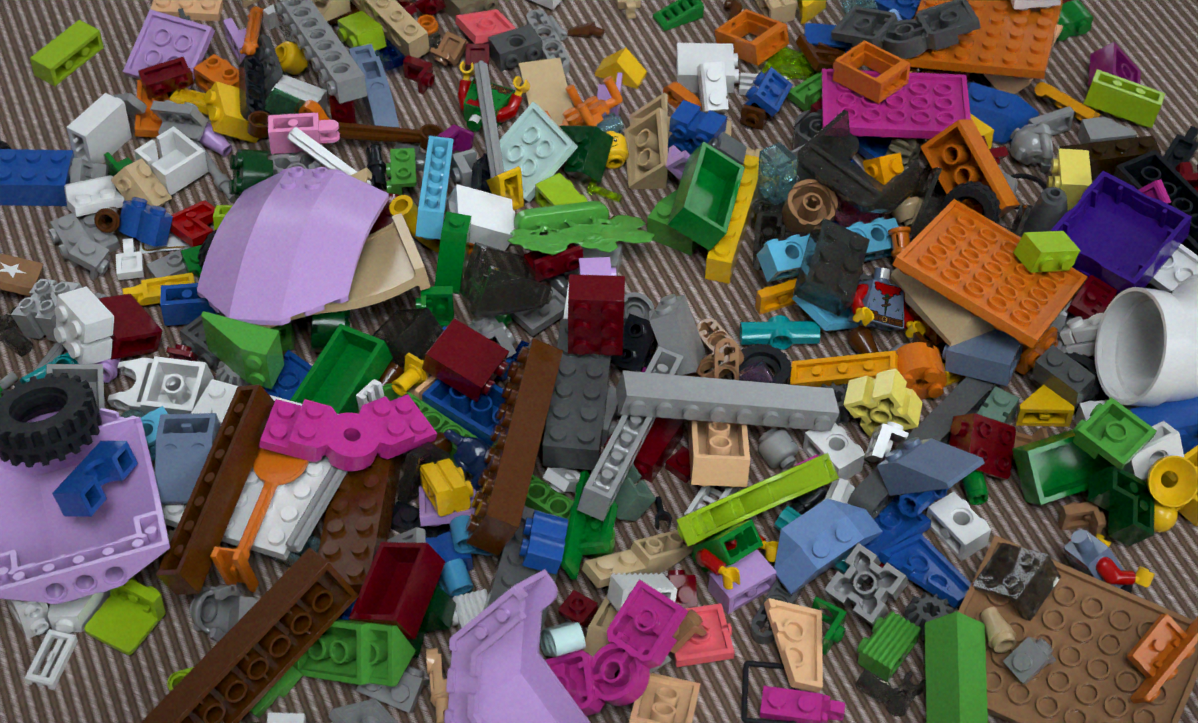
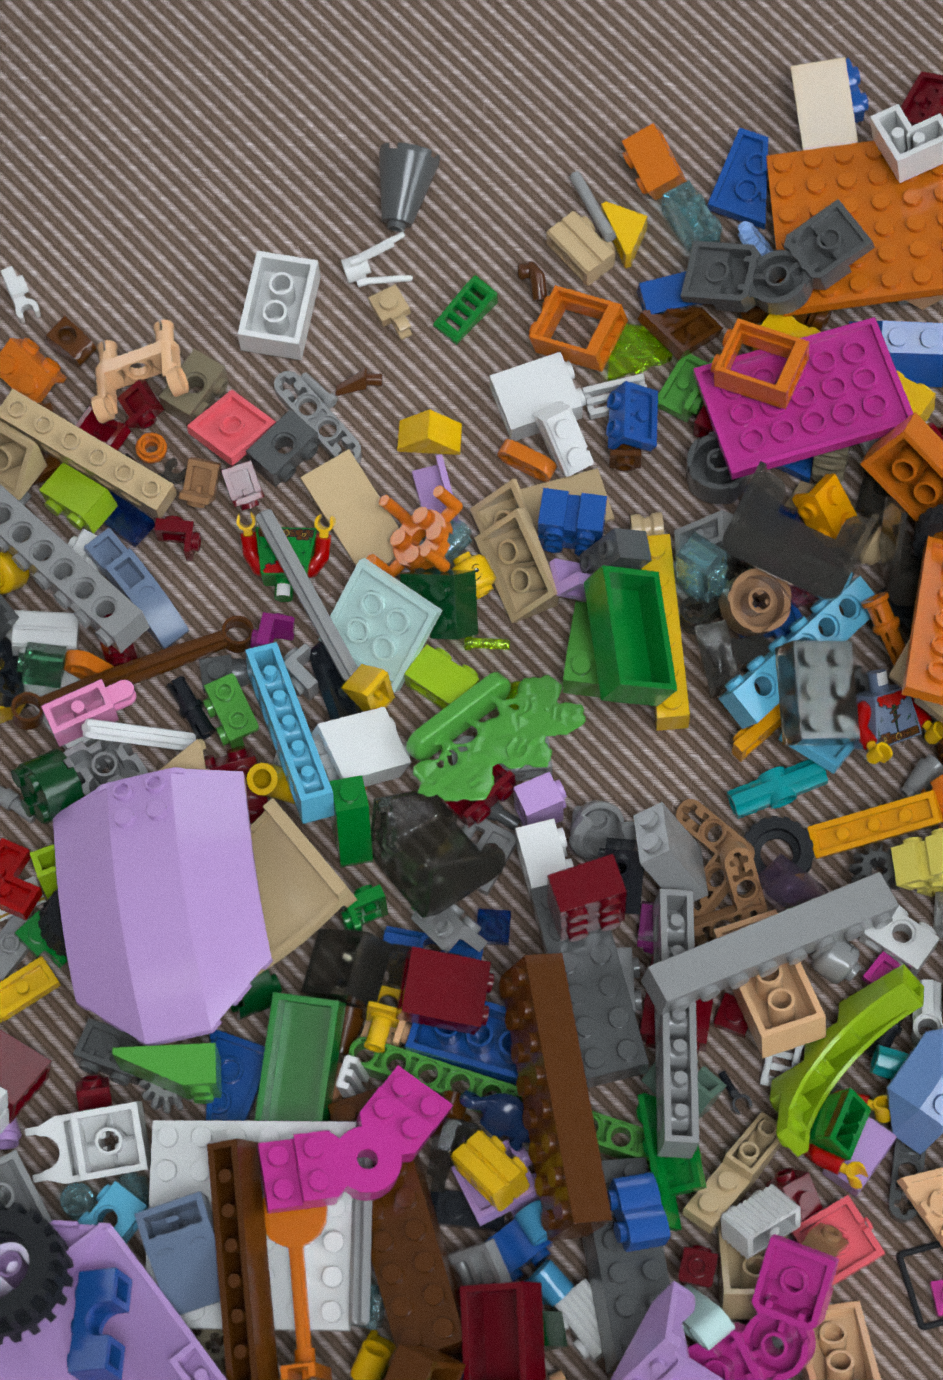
camera: 15 degrees left, 20 degrees up
(182, 304) = (55, 1010): blue brick -> none
(562, 479) = (617, 1098): white plate -> none
(862, 340) = (883, 773): reddish brown cone -> none

